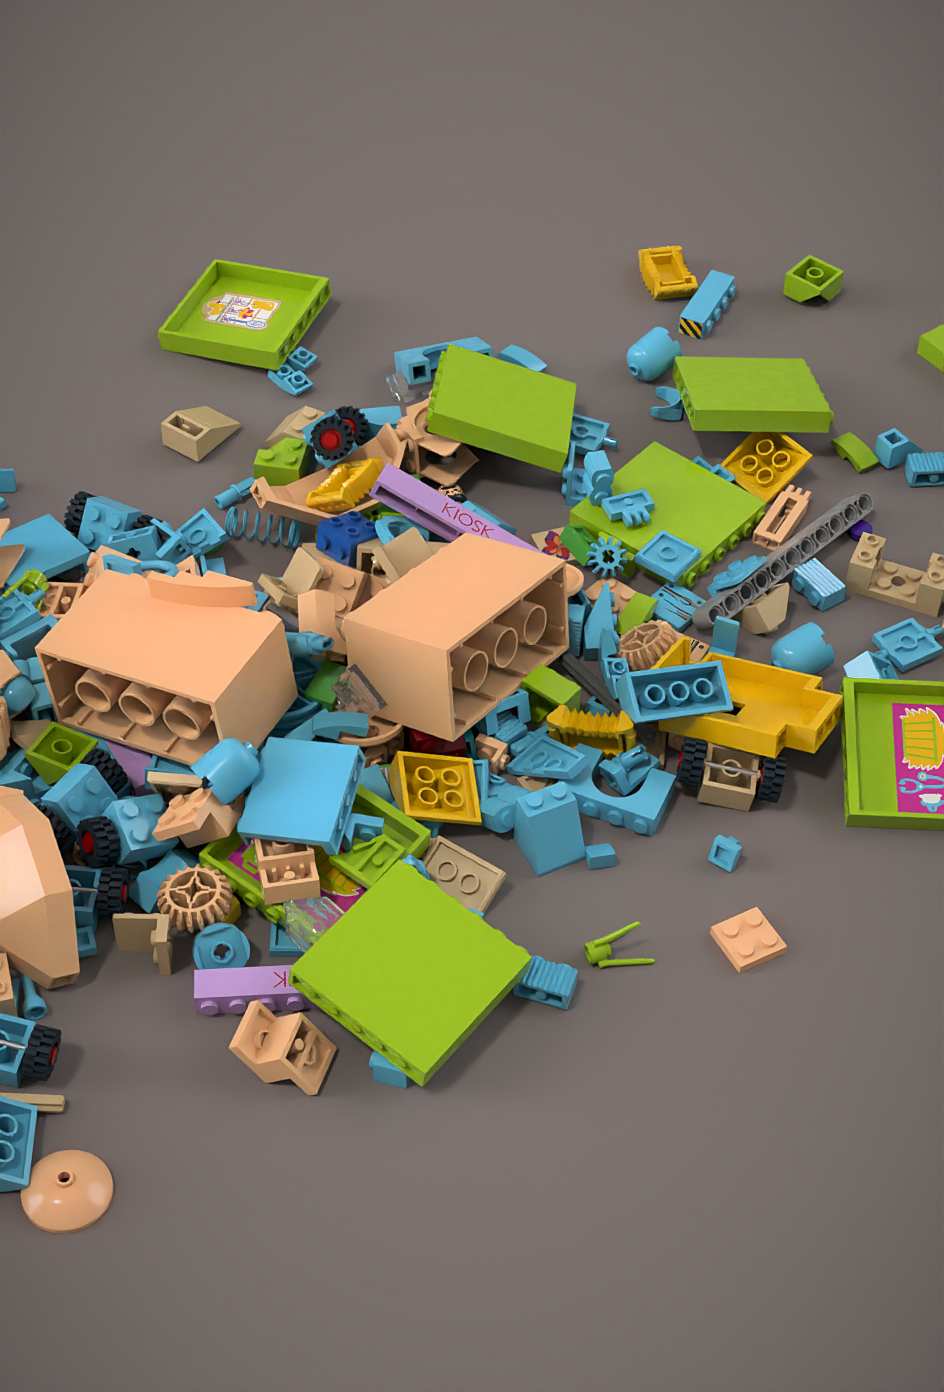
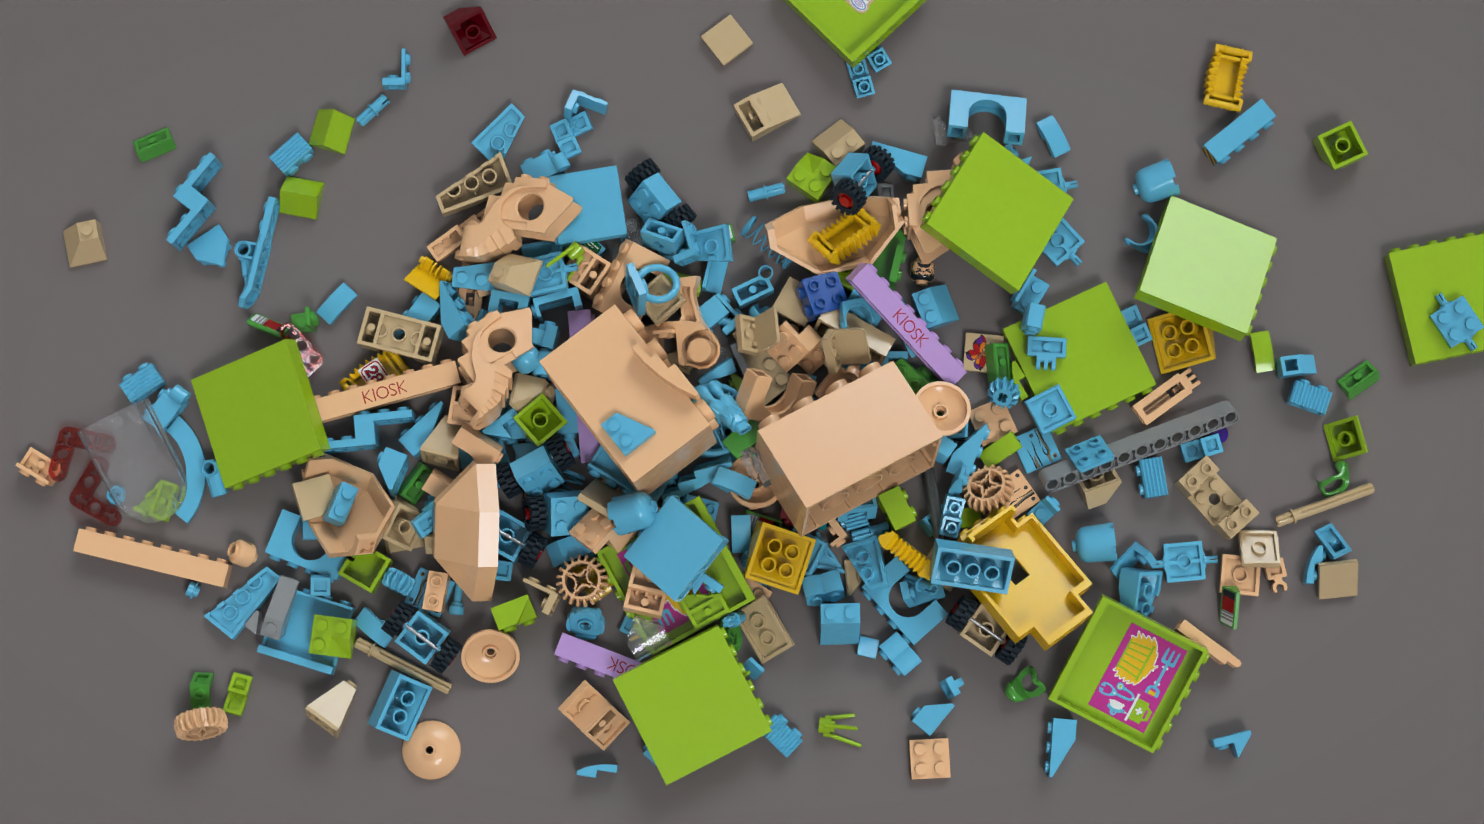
camera: 25 degrees right, 35 degrees up
(117, 973) = (514, 613): none -> lime slope
(121, 1021) = (490, 665): none -> light nougat dish
(126, 394) = (727, 40): none -> tan tile
(181, 661) = (627, 433): none -> medium azure wing
(270, 561) = (753, 289): none -> medium azure hinge
(310, 1119) = (591, 771): none -> medium azure slope
(642, 842) = (899, 654): none -> medium azure brick
(720, 891) = (930, 716): none -> medium azure slope
(802, 830) = (1016, 692): none -> bright green piece
(843, 550) = (1200, 448): none -> medium azure slope
(849, 650) = (1131, 557): none -> medium azure bracket
(891, 854) = (1061, 739): none -> medium azure slope

